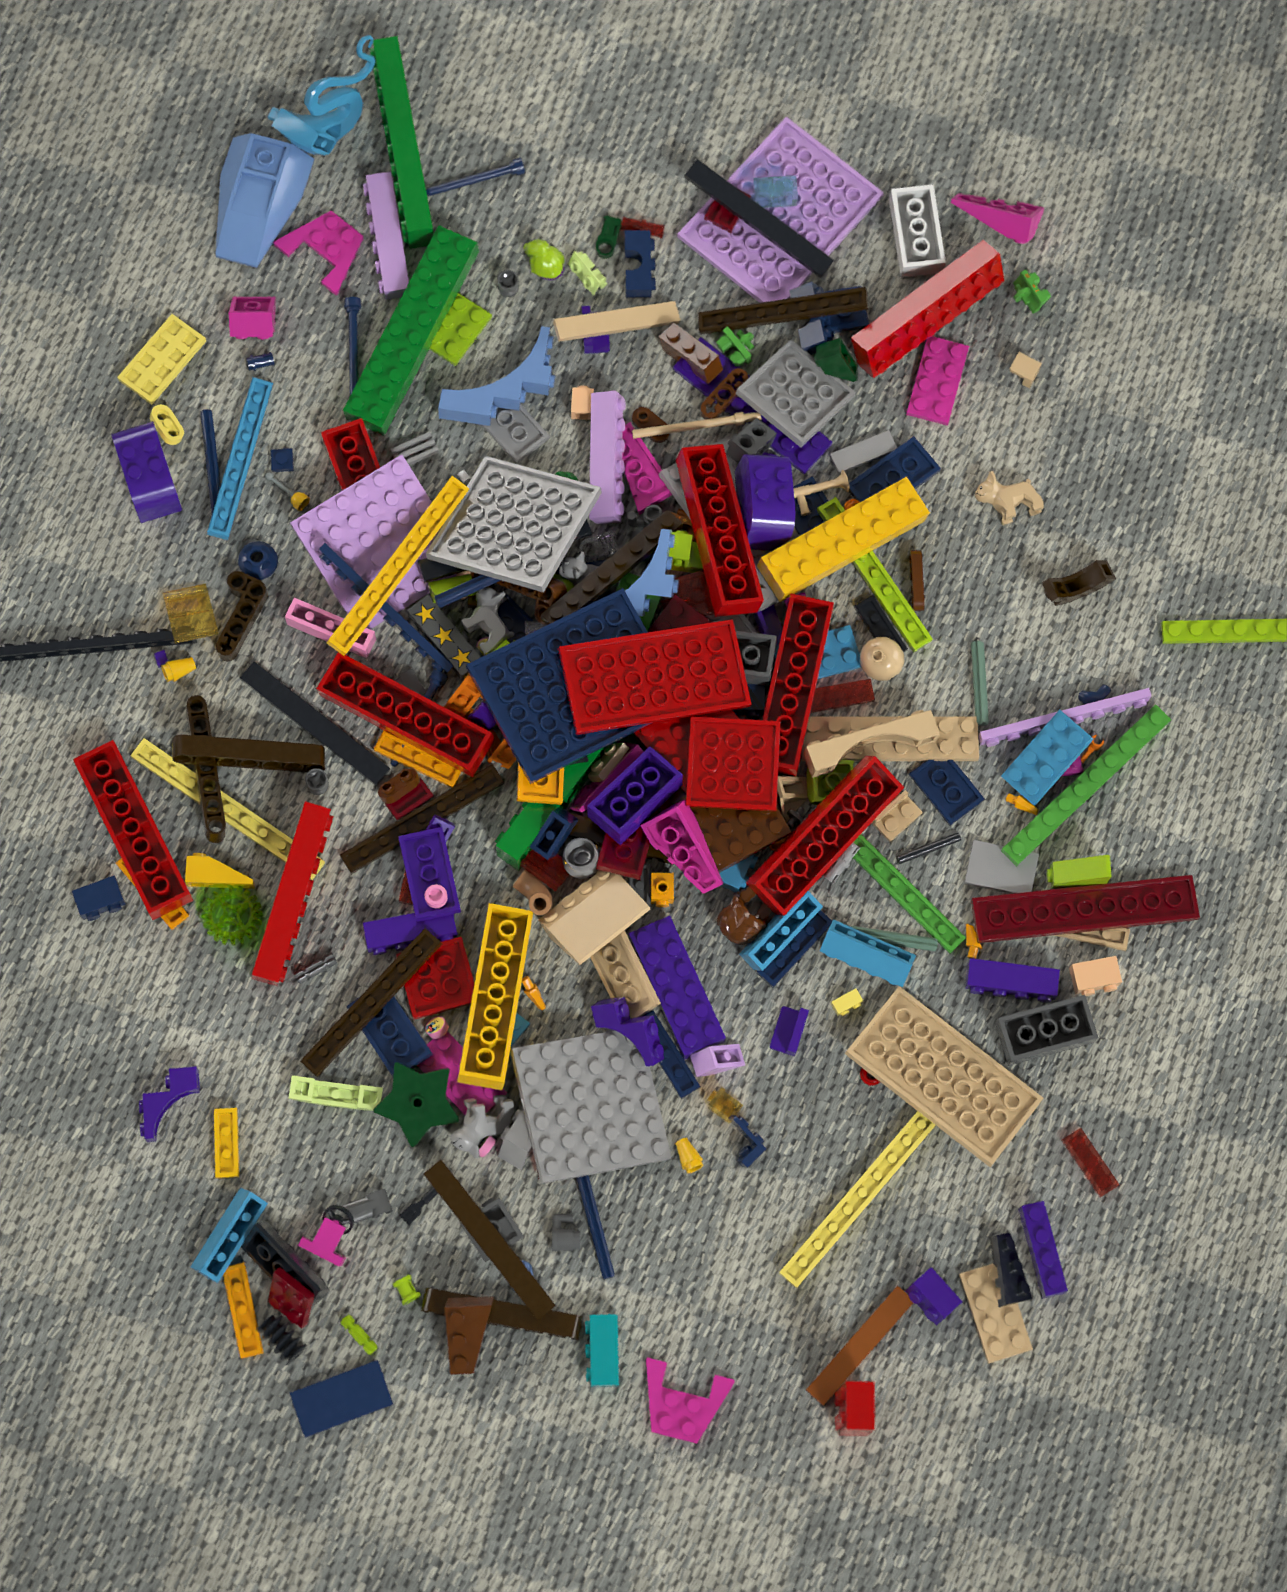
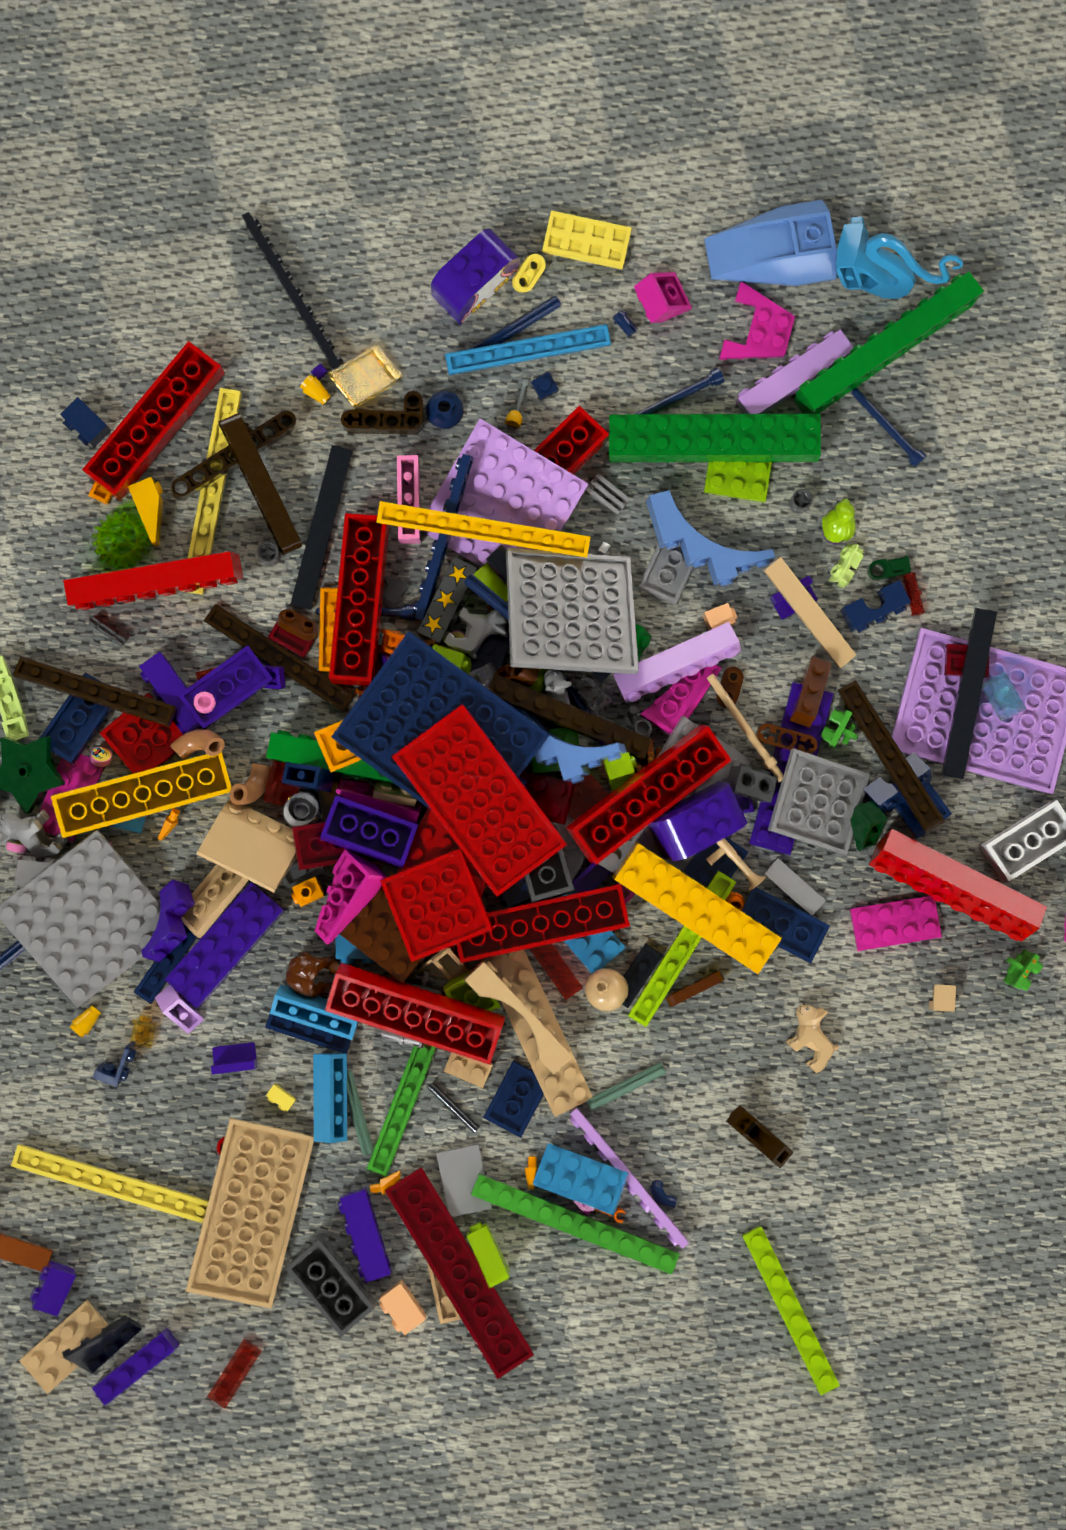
camera: 65 degrees right, 10 degrees up
(469, 920) = (198, 740): none -> medium nougat cylinder

